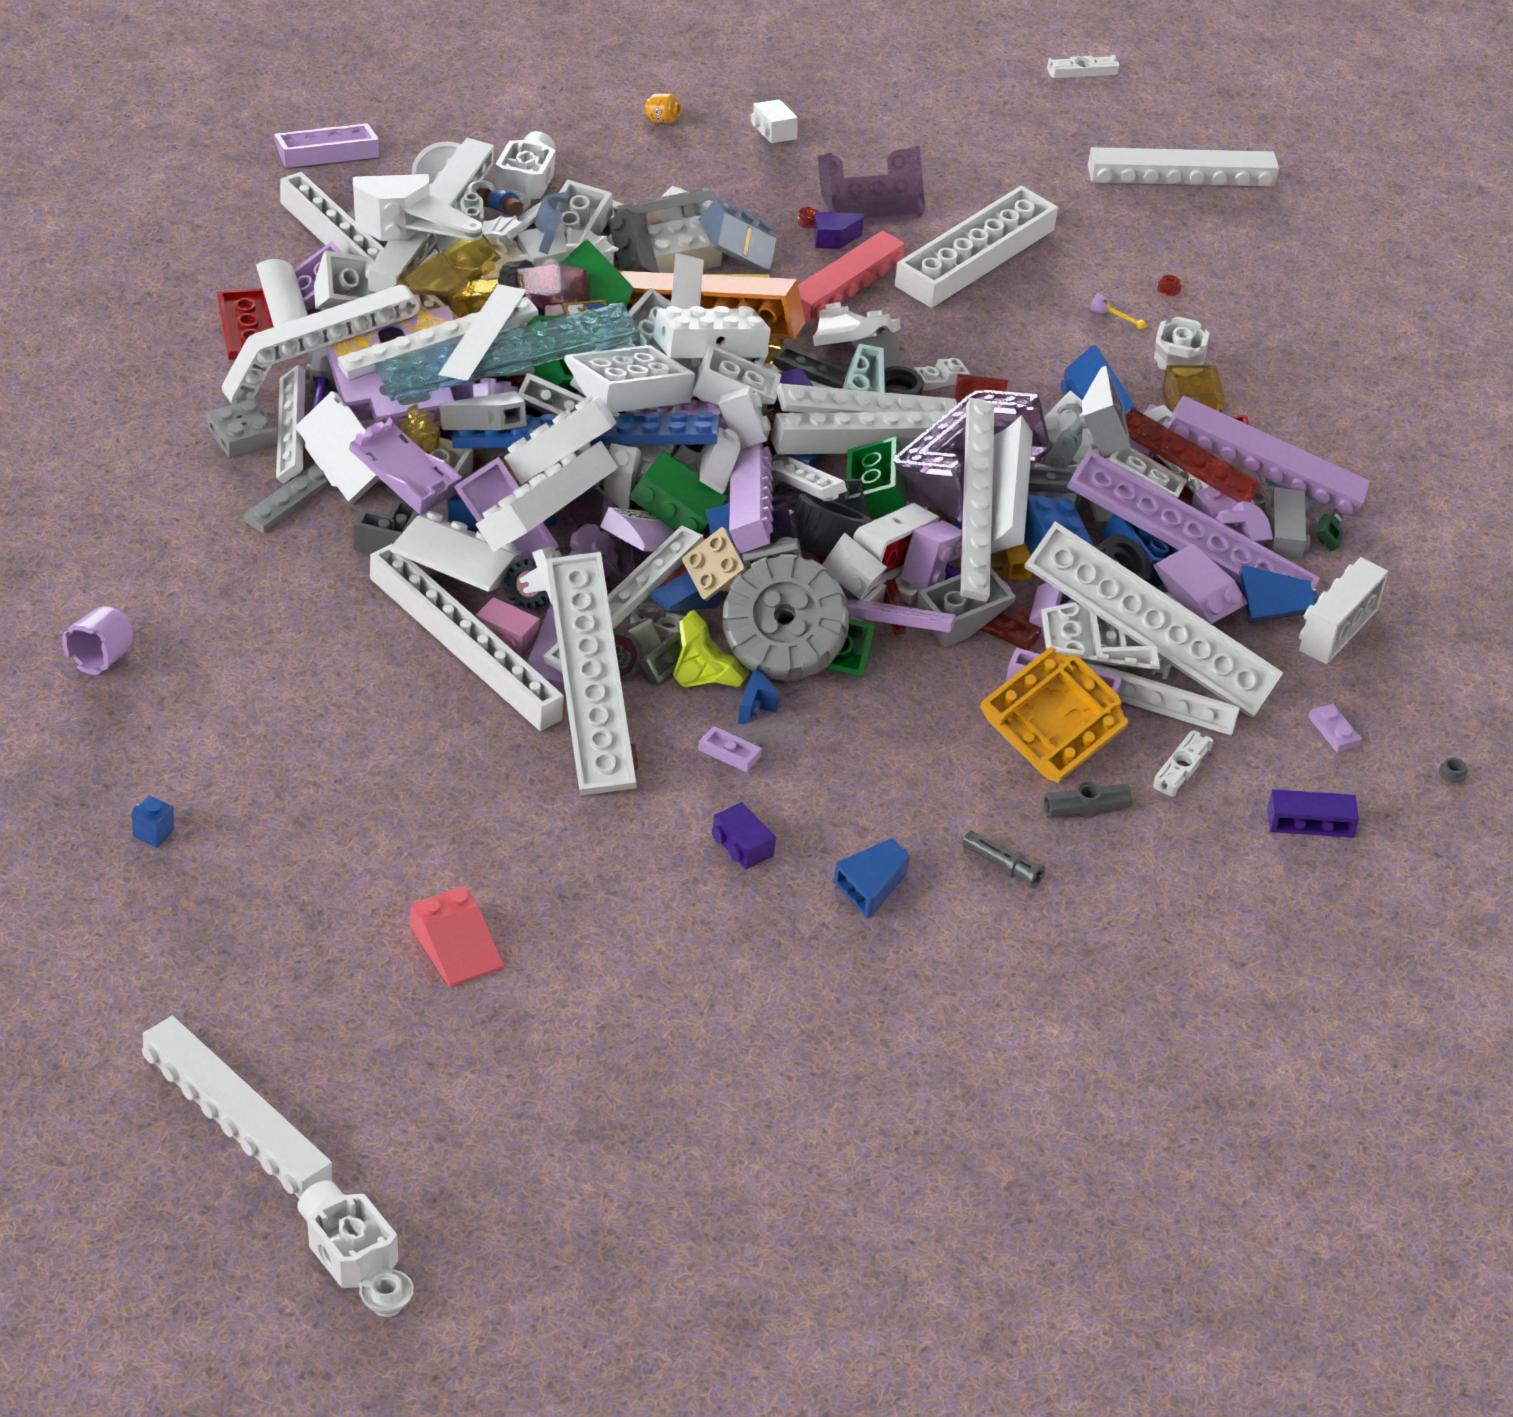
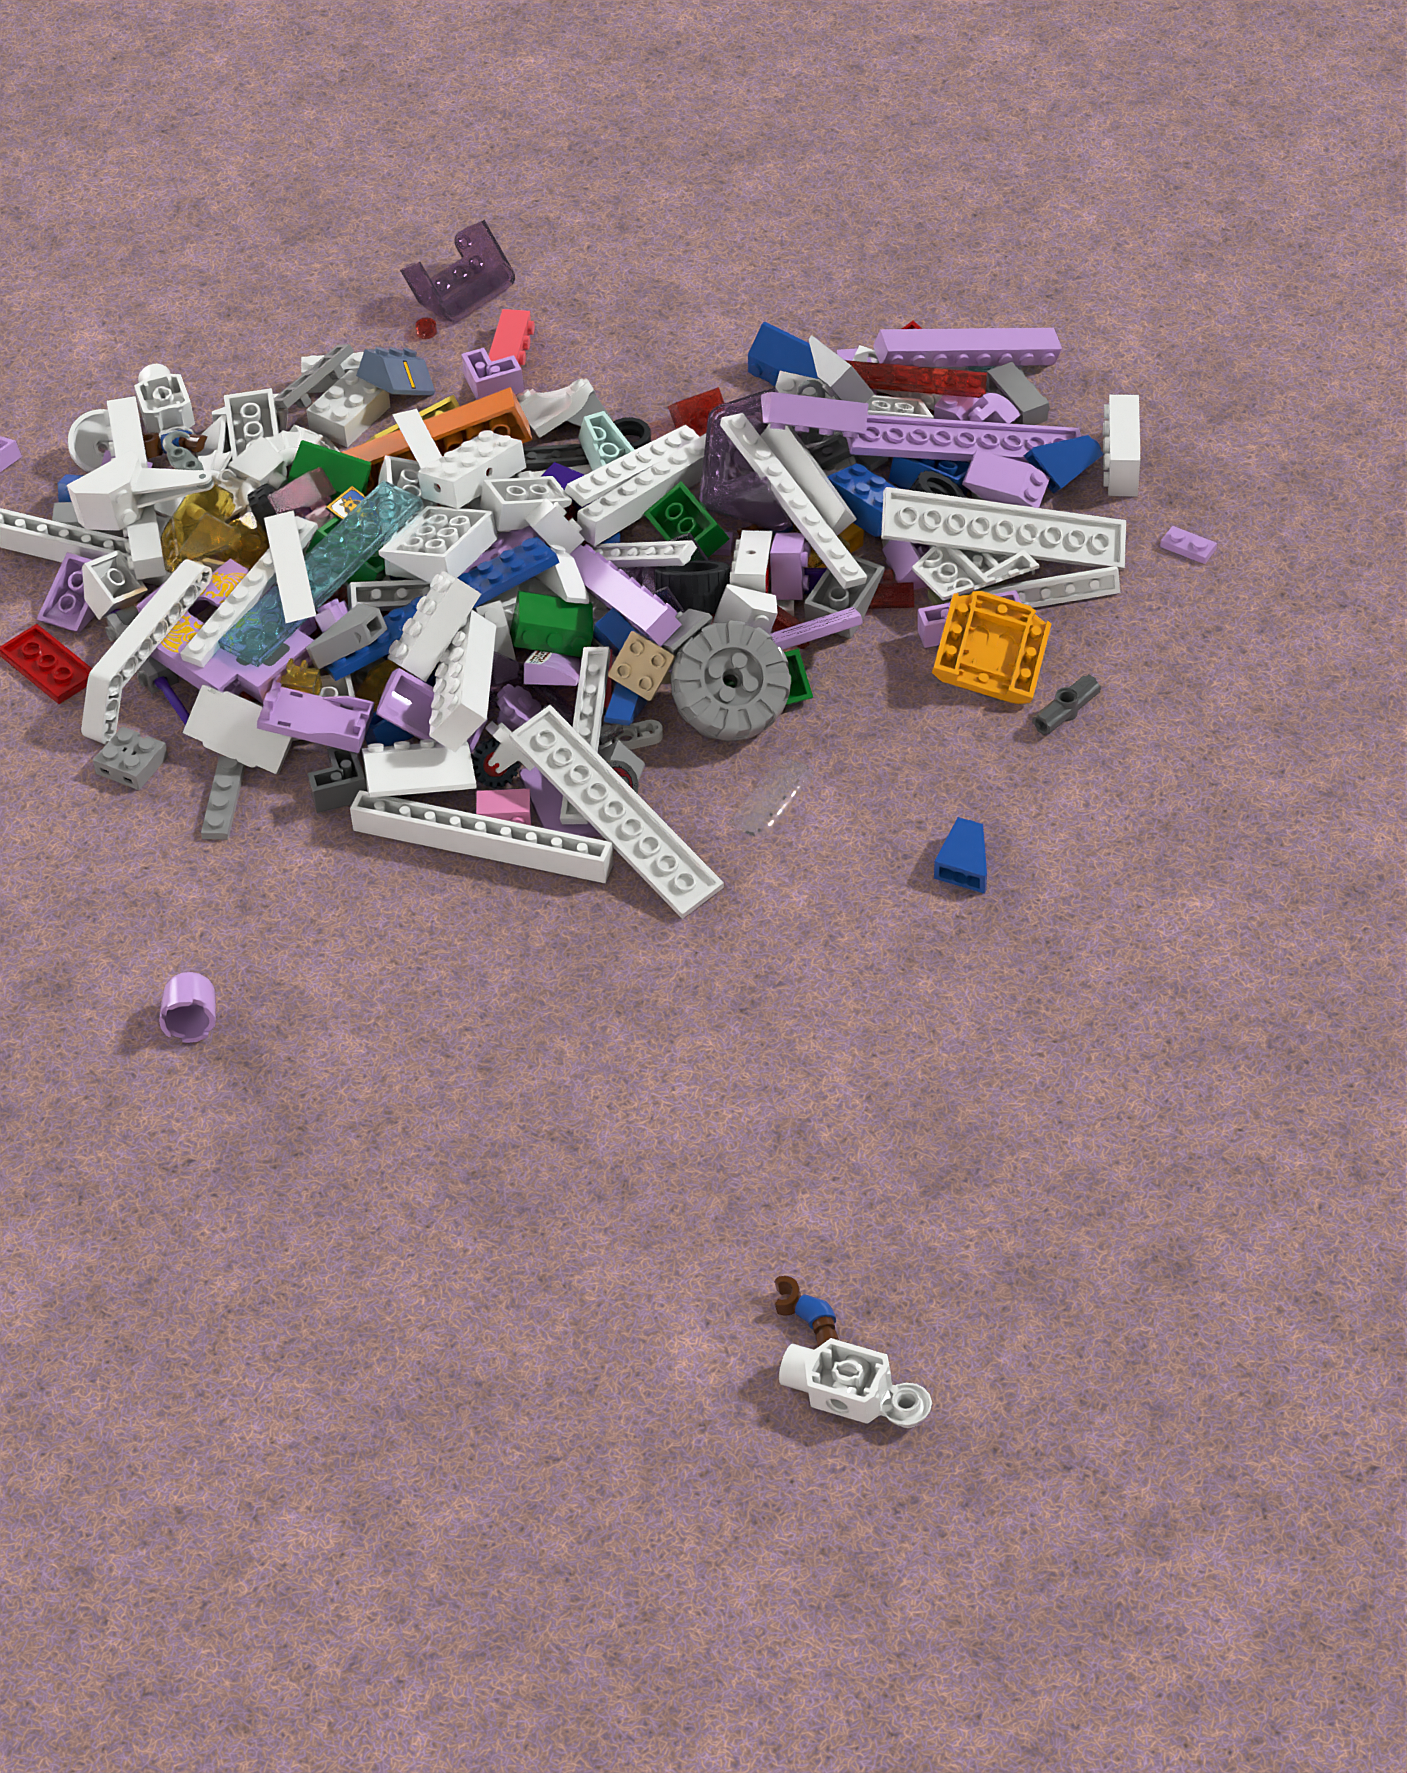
camera: 25 degrees left, 5 degrees up
(152, 820) = (372, 1135): blue brick -> none
(235, 1106) = (656, 1330): white brick -> none
(281, 291) = (65, 625): white brick -> none
(290, 414) = (169, 730): white plate -> none
(384, 1171) = (811, 1309): none -> reddish brown piece
(455, 936) = (697, 1090): coral slope -> none
(548, 219) = (255, 441): sand blue piece -> none
(633, 242) = (310, 416): dark grey brick -> none
(662, 108) = (225, 292): light orange head -> none
(662, 659) = (651, 767): dark grey plate -> none
(702, 659) = (686, 753): neon yellow piece -> none
(729, 749) = (771, 814): lavender plate -> none
(743, 835) = (840, 879): dark purple brick -> none
(757, 696) = (750, 758): blue slope -> none
(775, 121) = (328, 256): white brick -> none
(815, 277) = (491, 377): none -> lavender brick
(836, 229) = (458, 327): dark purple slope -> none
(942, 374) = (651, 406): white slope -> none
(975, 246) = (585, 285): white brick -> none
(1014, 863) = (1058, 786): dark grey pin -> none
(1050, 431) = (814, 413): none -> lavender slope
(1073, 67) = (518, 91): white piece -> none
(1101, 305) = (721, 285): hinge -> none
(1169, 285) = (758, 241): clear red plate -> none
(1172, 774) = (1106, 648): white piece -> none
(1180, 343) = (820, 288): white brick -> none
(1182, 166) = (682, 133): white brick -> none
(1194, 382) = (857, 321): clear yellow brick -> none
(1312, 813) = (1234, 622): dark purple brick -> none
(1329, 530) = (1051, 385): dark green plate -> none
(1453, 770) = (1300, 531): dark grey plate -> none

